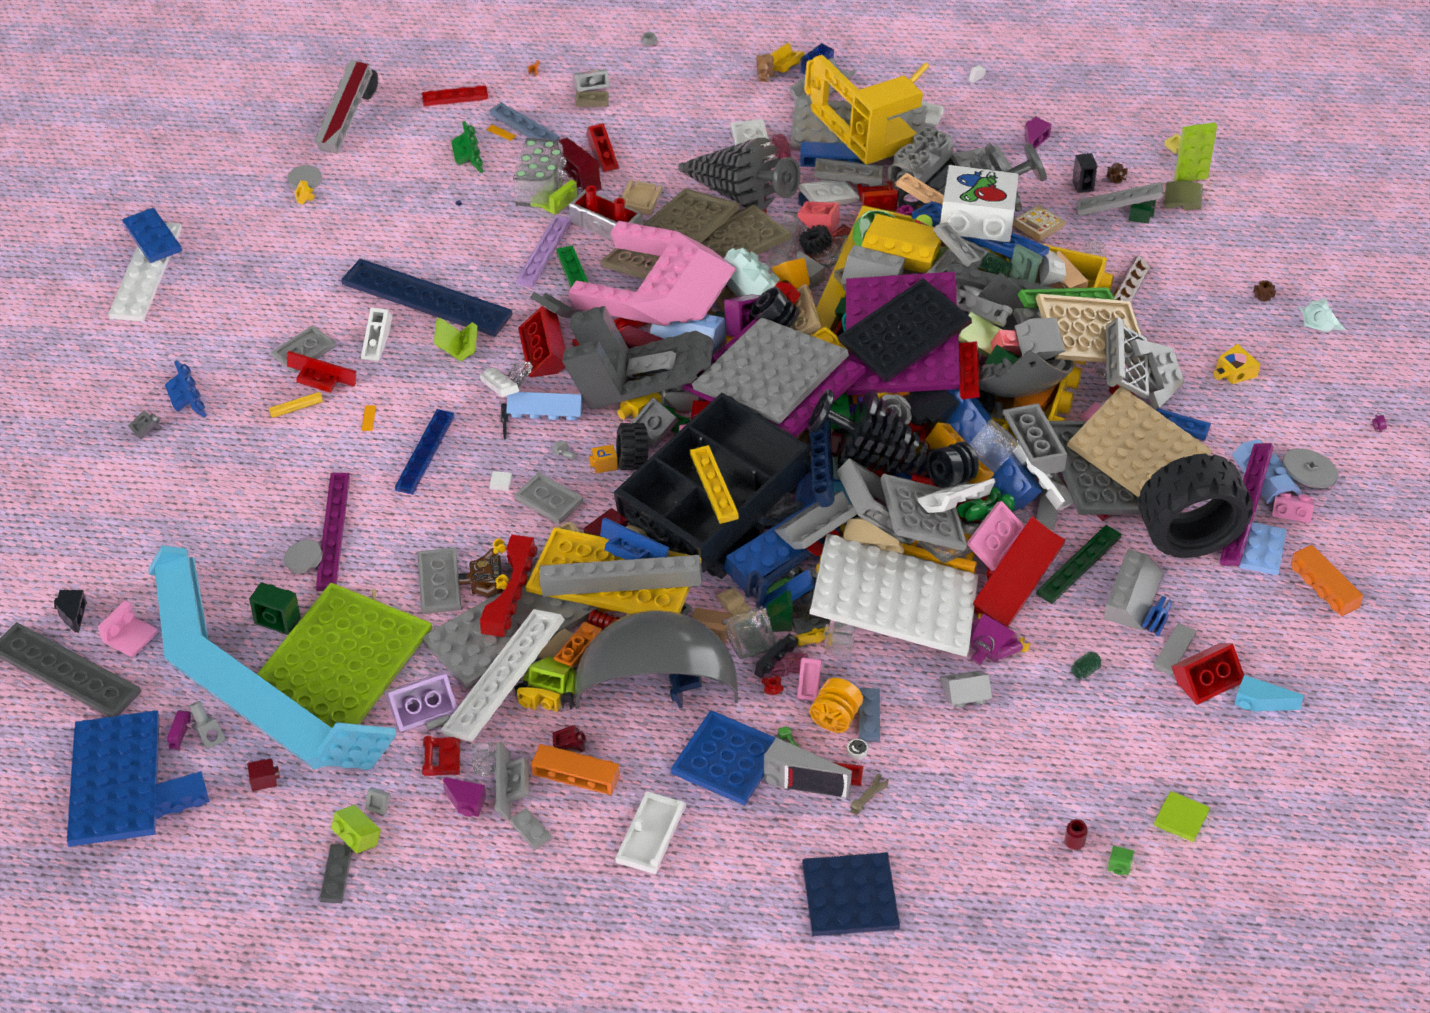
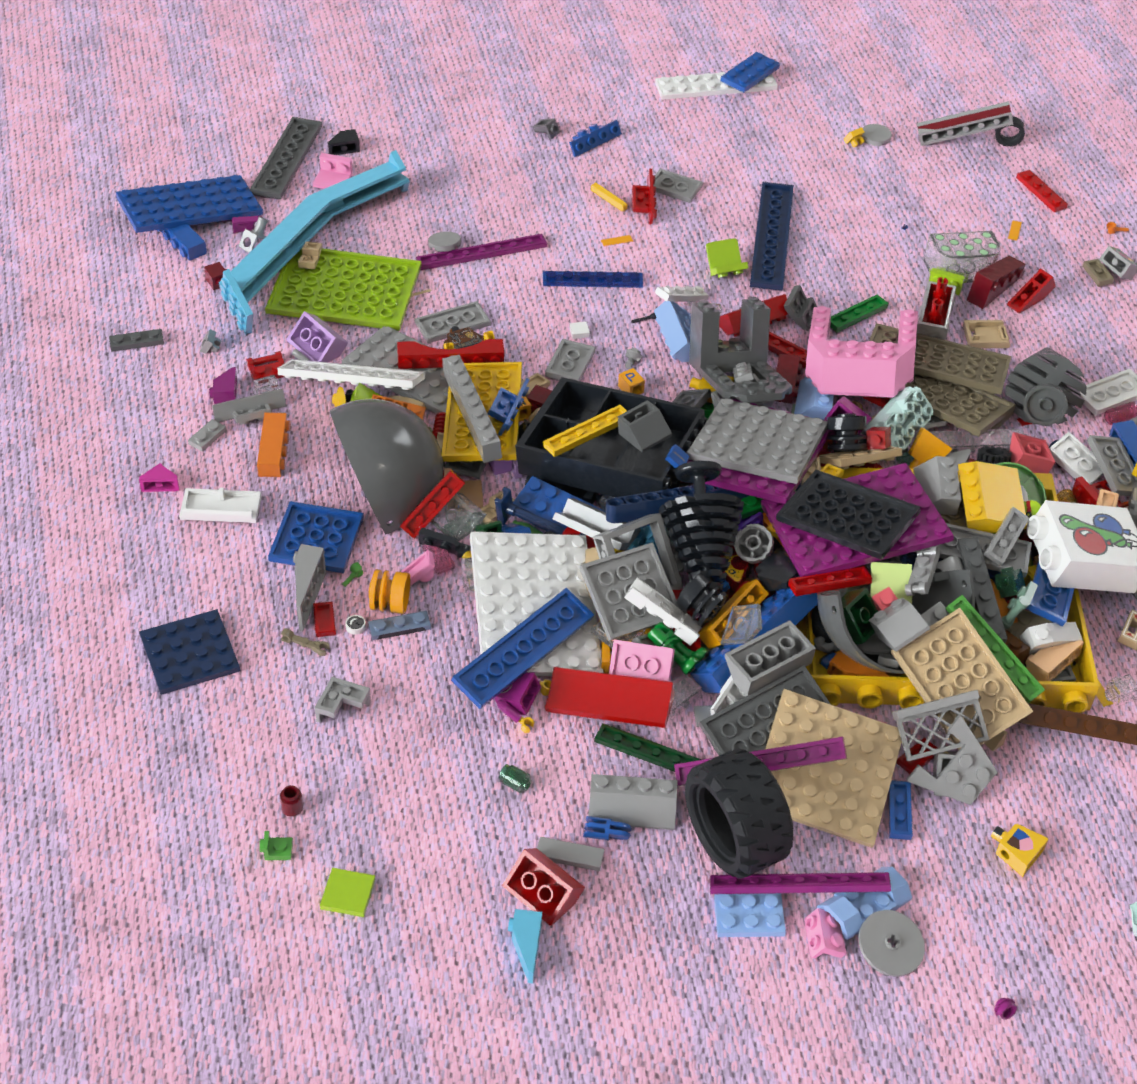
camera: 70 degrees right, 0 degrees up
(275, 608) = (377, 234): dark green brick -> none
(279, 678) = (310, 255): none -> tan slope
(355, 829) = (174, 335): lime brick -> none
(376, 334) = (712, 216): white slope -> none
(466, 147) = (976, 213): green bracket -> none
(521, 123) = (1031, 238): sand blue plate -> none
(543, 251) = (867, 290): lavender tile -> none
(569, 738) = (305, 436): dark red bracket -> none
(590, 879) = (159, 480): none -> dark pink slope
(631, 445) = (647, 383): black tyre -> none
(737, 437) = (643, 426): none -> dark grey slope
(738, 641) = (432, 504): none -> red plate
(772, 689) = (410, 550): red plate -> none
(784, 426) = (677, 456): none -> blue tile
(956, 612) = (522, 648): none -> blue plate
(957, 776) = (339, 692): none -> light grey panel
(966, 688) = (444, 690): light grey slope -> none
(1139, 474) = (784, 757): none -> magenta plate
(1326, 580) = (720, 980): orange brick -> none

